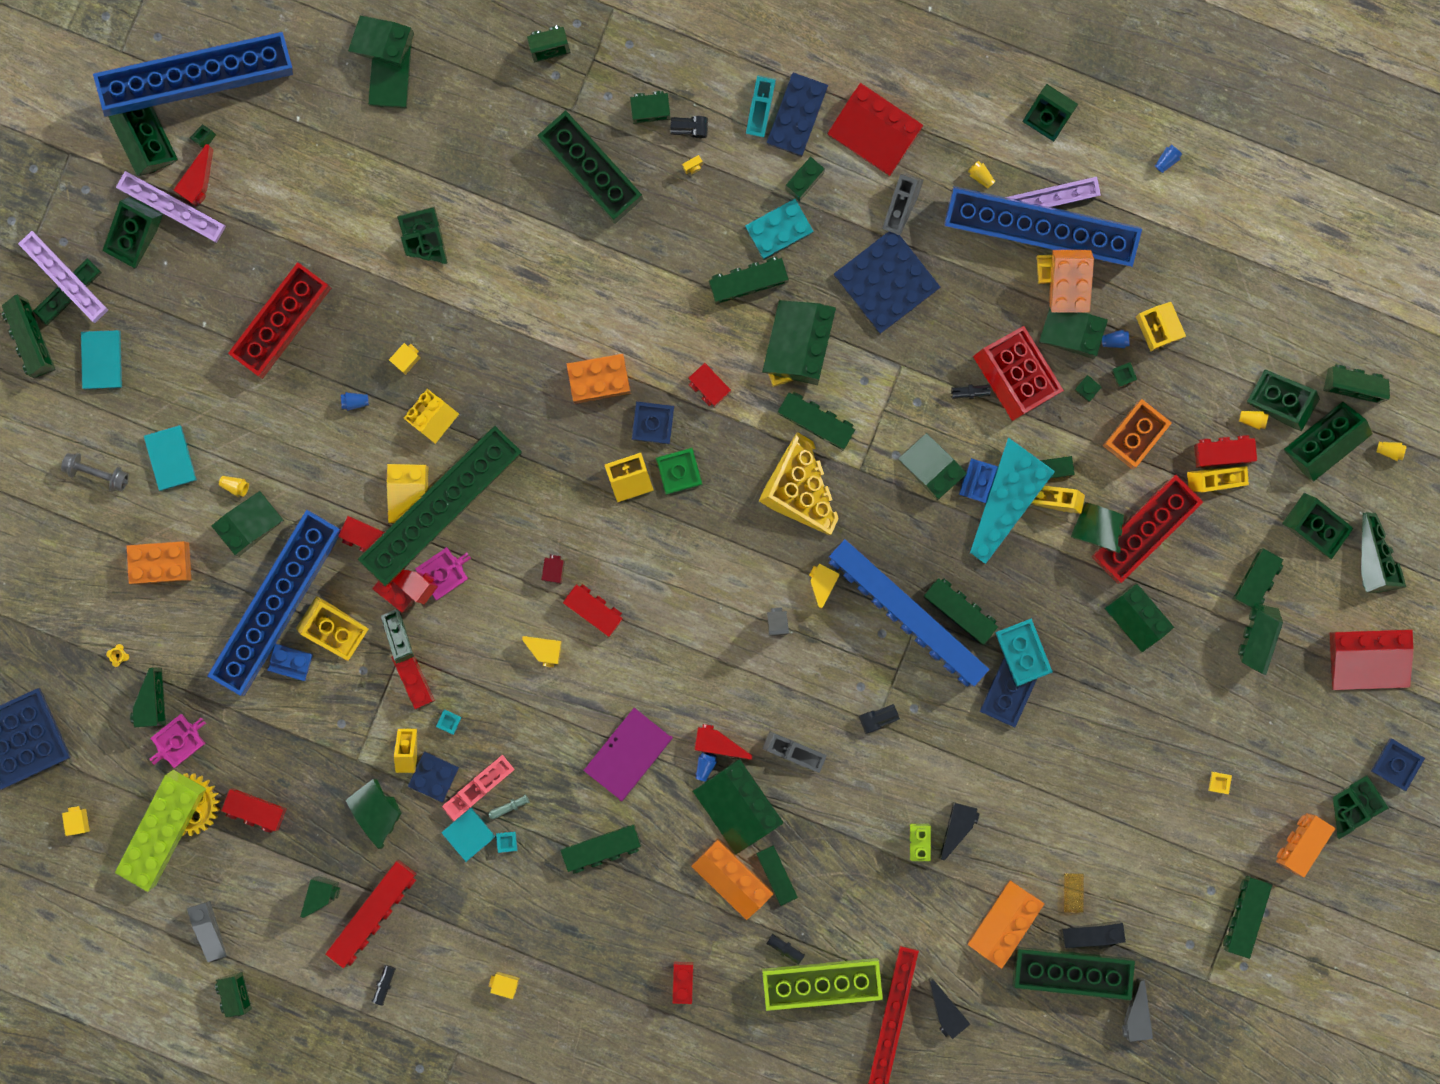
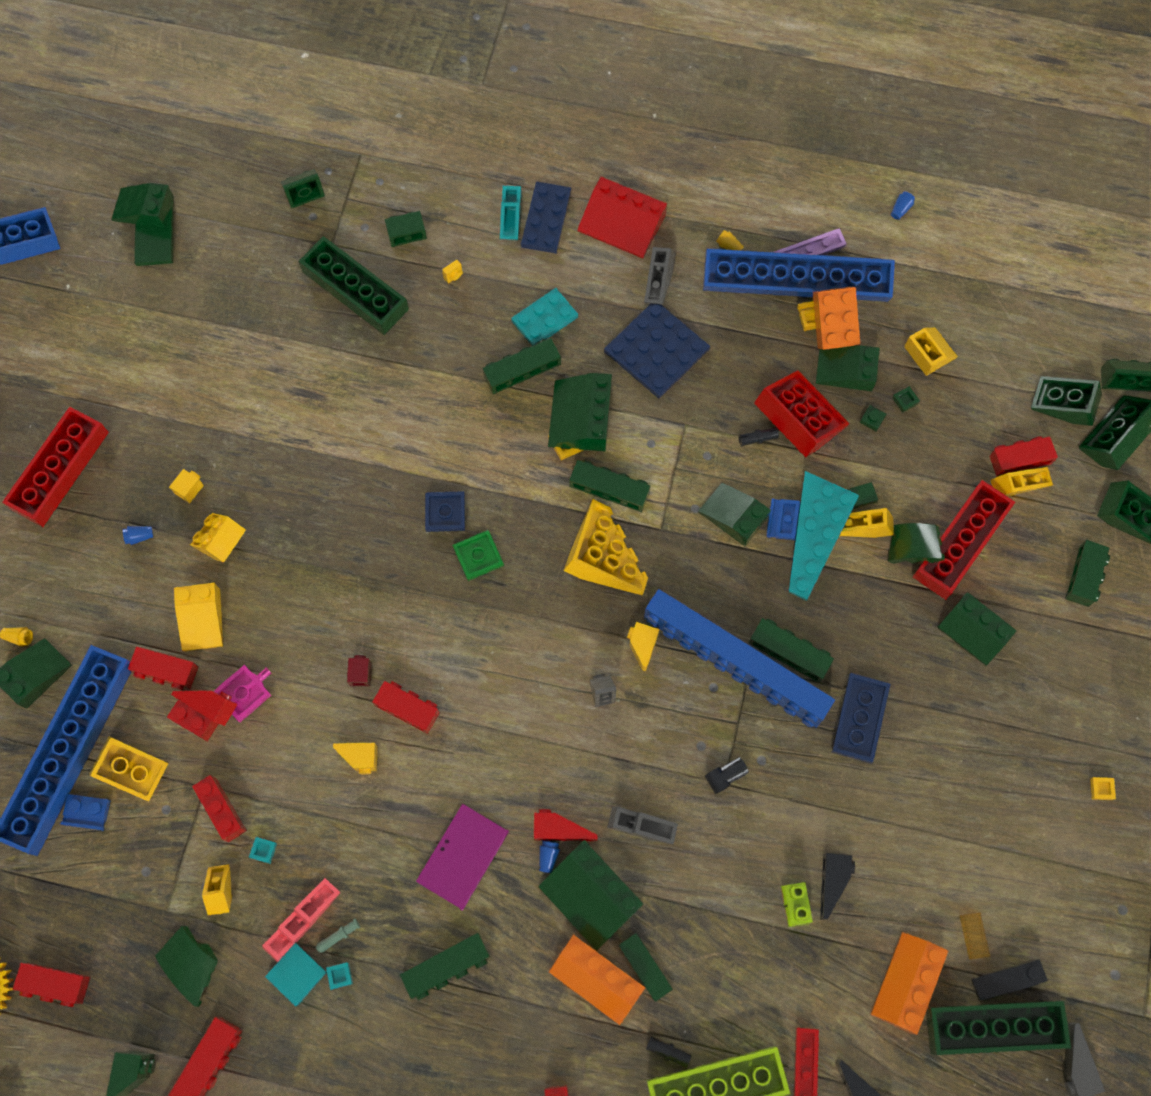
camera: 15 degrees left, 15 degrees down
(397, 636) = (198, 764): tile -> none
(422, 235) = (196, 370): dark green slope -> none
(433, 776) = (251, 915): dark blue plate -> none
(439, 506) = (230, 624): dark green plate -> none
(598, 378) = (384, 476): orange brick -> none
(629, 477) = (427, 566): yellow slope -> none
(695, 126) = (450, 239): black piece -> none
(709, 385) = (497, 467): red brick -> none
(805, 179) = (562, 268): dark green brick -> none
(1023, 652) = (865, 681): teal tile -> none
(1050, 112) = (783, 182): dark green slope -> none
(1116, 339) = (891, 368): blue cone -> none
(1137, 434) = (932, 450): orange brick -> none
(1255, 419) = (1043, 421): yellow cone -> none
(1260, 637) = (1109, 627): dark green slope -> none

